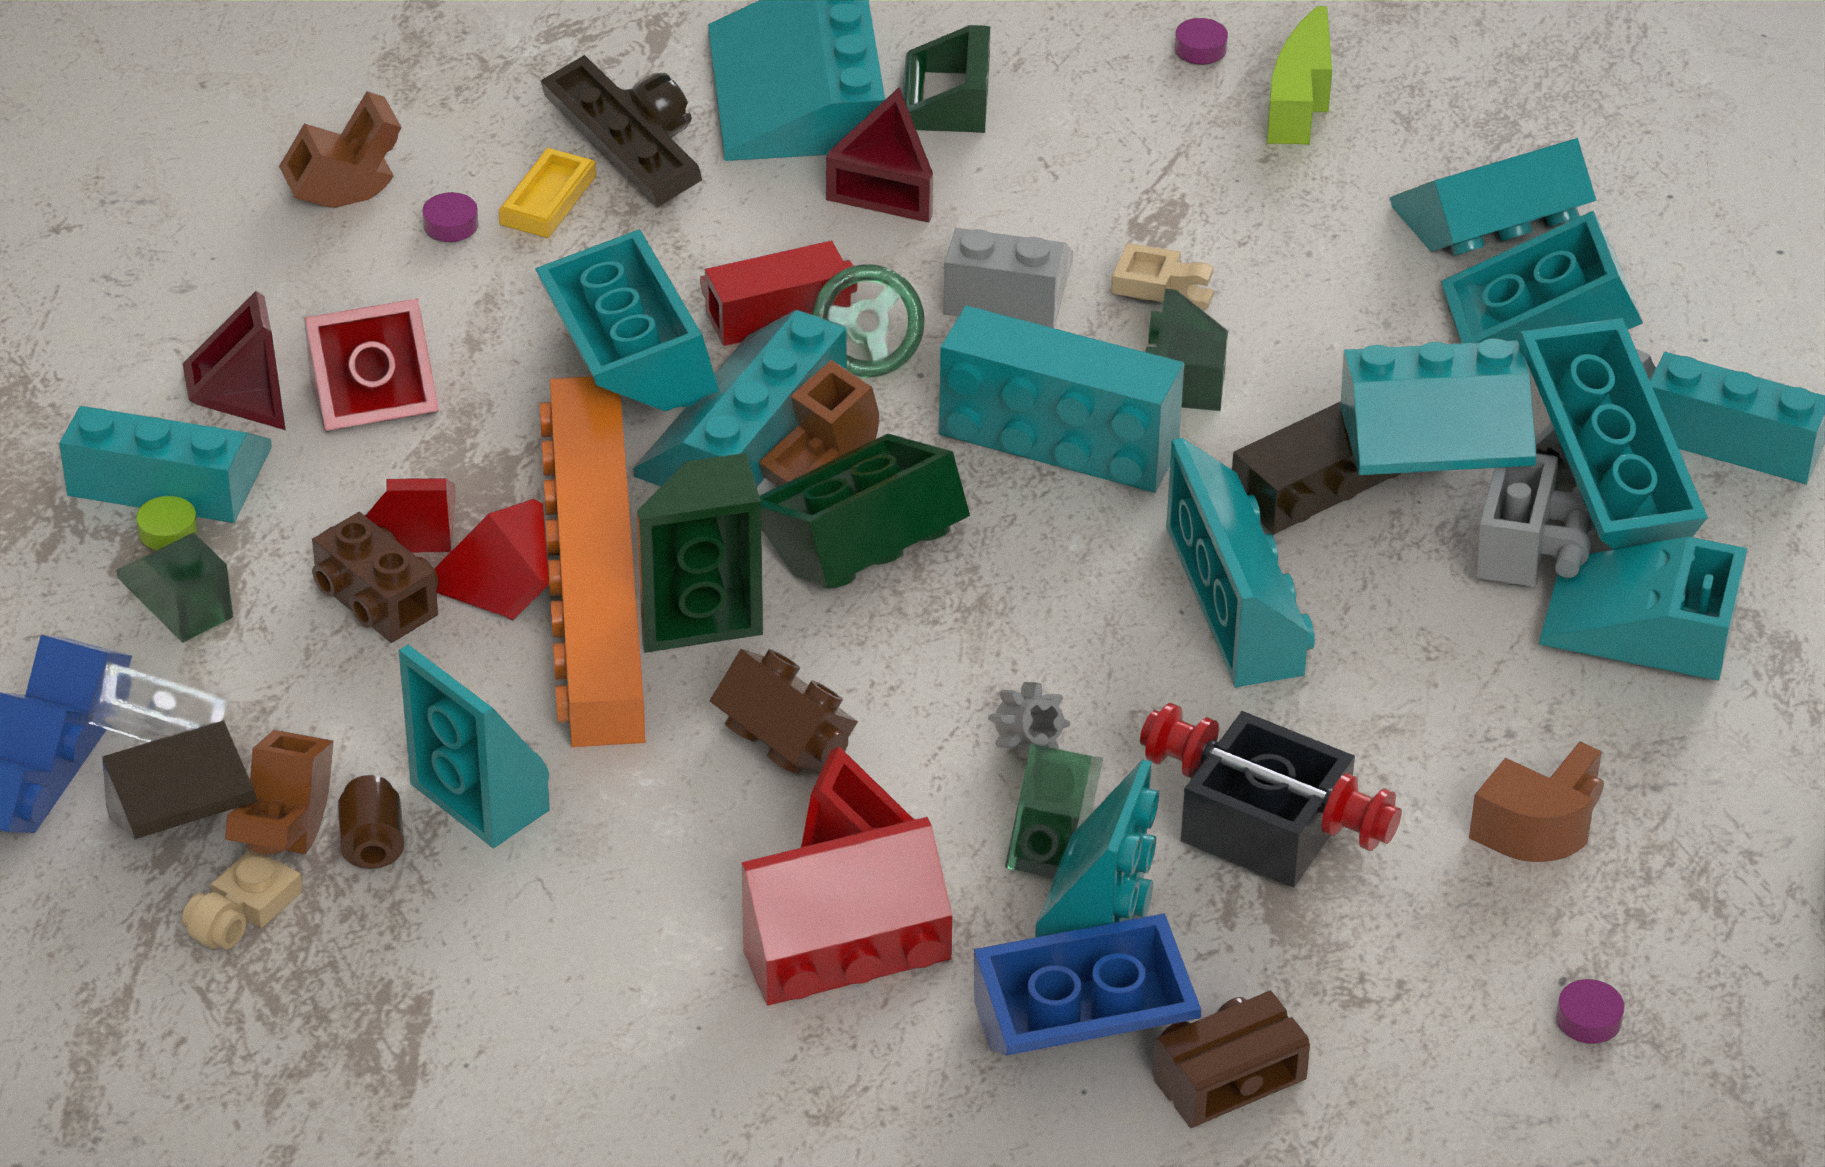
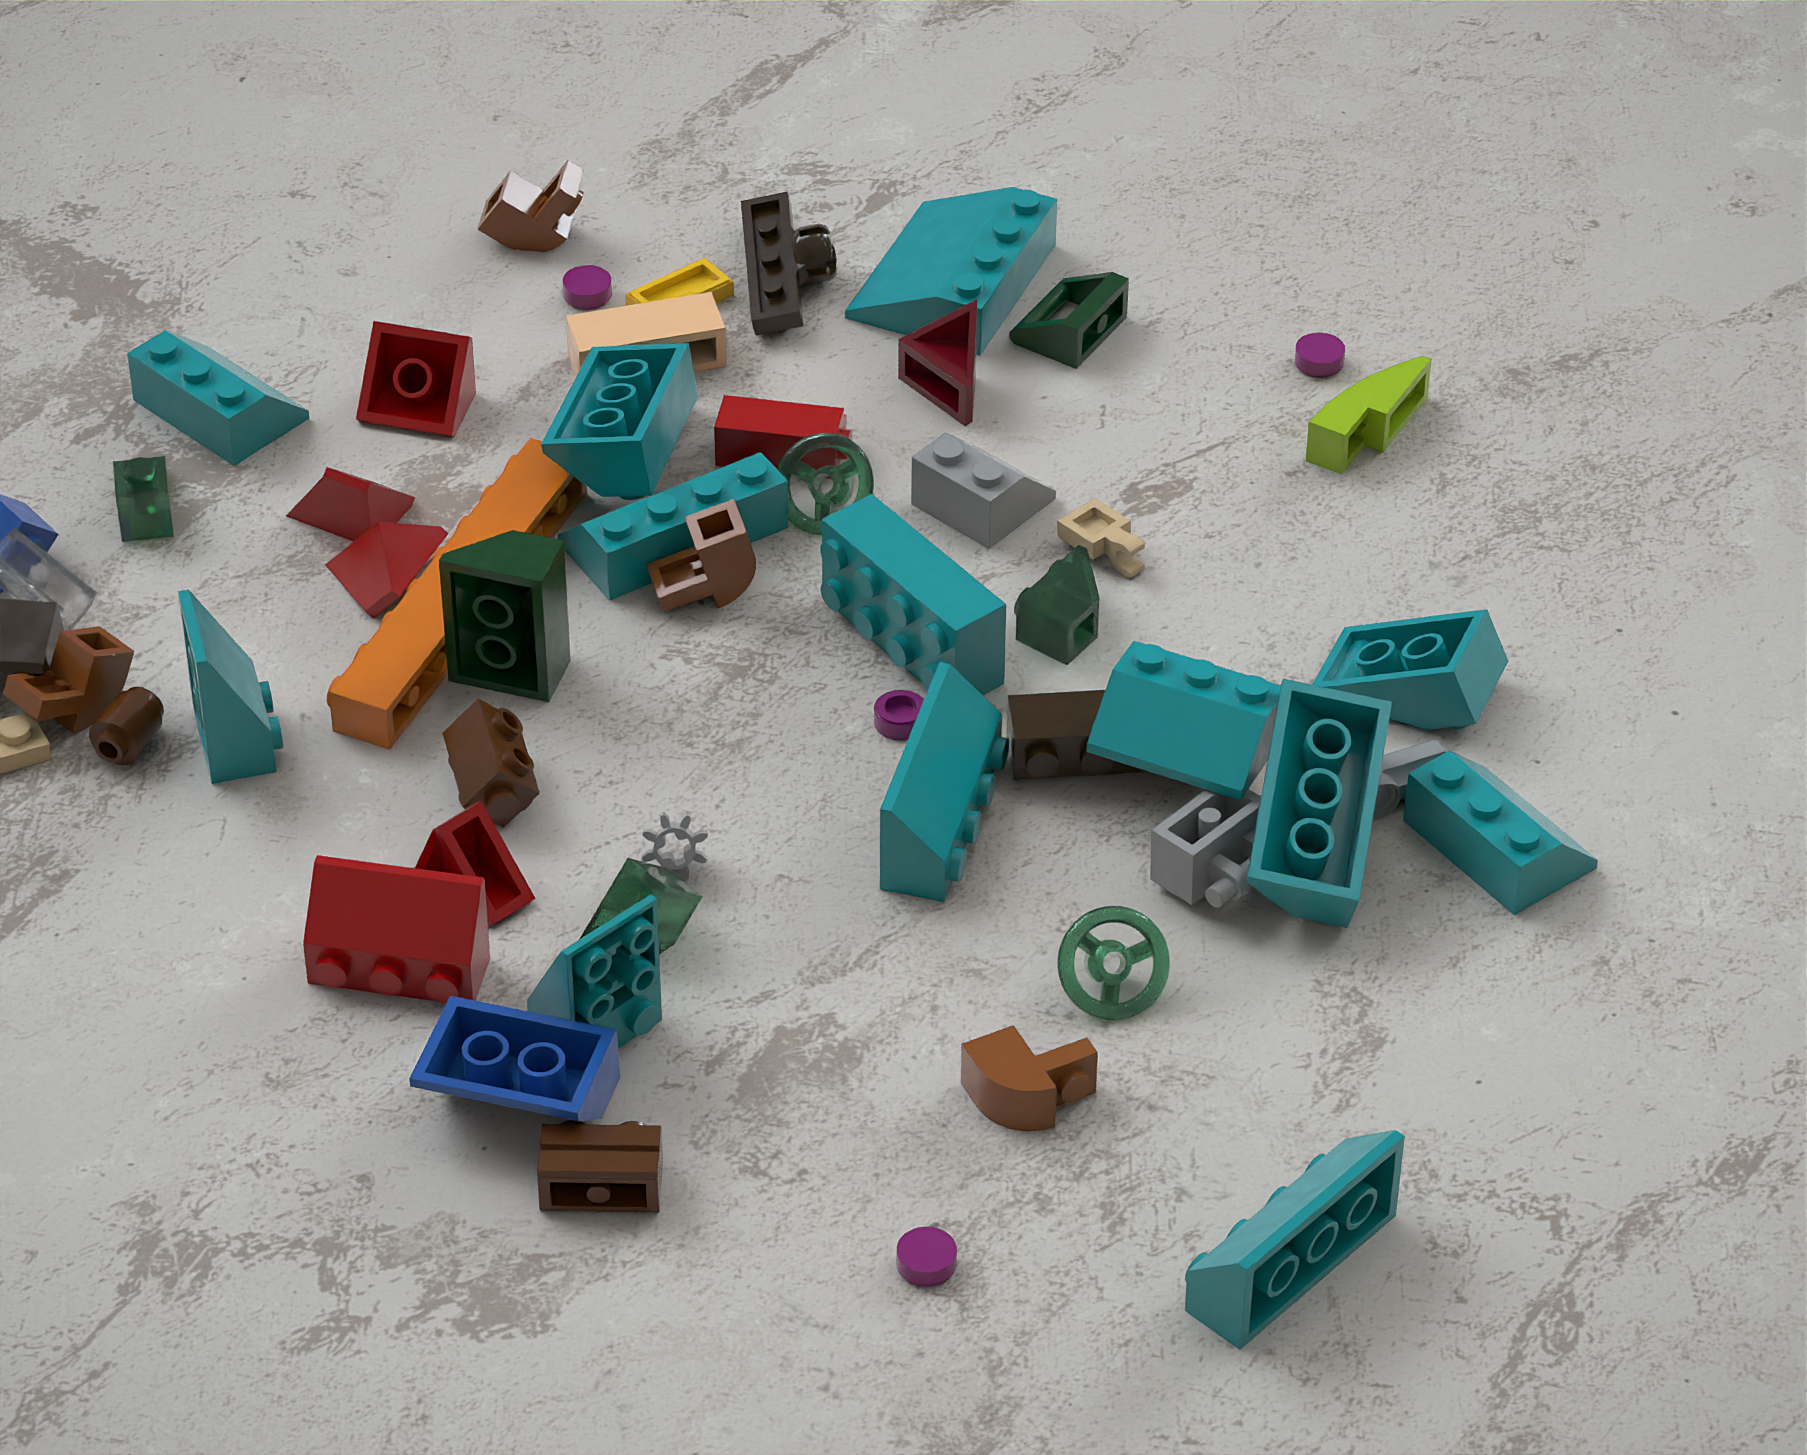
camera: 30 degrees right, 0 degrees up
(165, 521) = (181, 445): lime tile -> none
(238, 367) = (328, 347): dark red slope -> none
(375, 577) = (286, 544): reddish brown brick -> none
(569, 226) = (667, 321): none -> light nougat brick
(863, 509) = (688, 632): dark green slope -> none
(1115, 515) = (896, 713): none -> magenta tile
(1265, 792) = (796, 971): black brick -> none
(1498, 198) = (1446, 574): teal slope -> none
(1525, 667) = (1096, 950): none -> clear green piece
(1651, 605) = (1268, 960): teal slope -> none

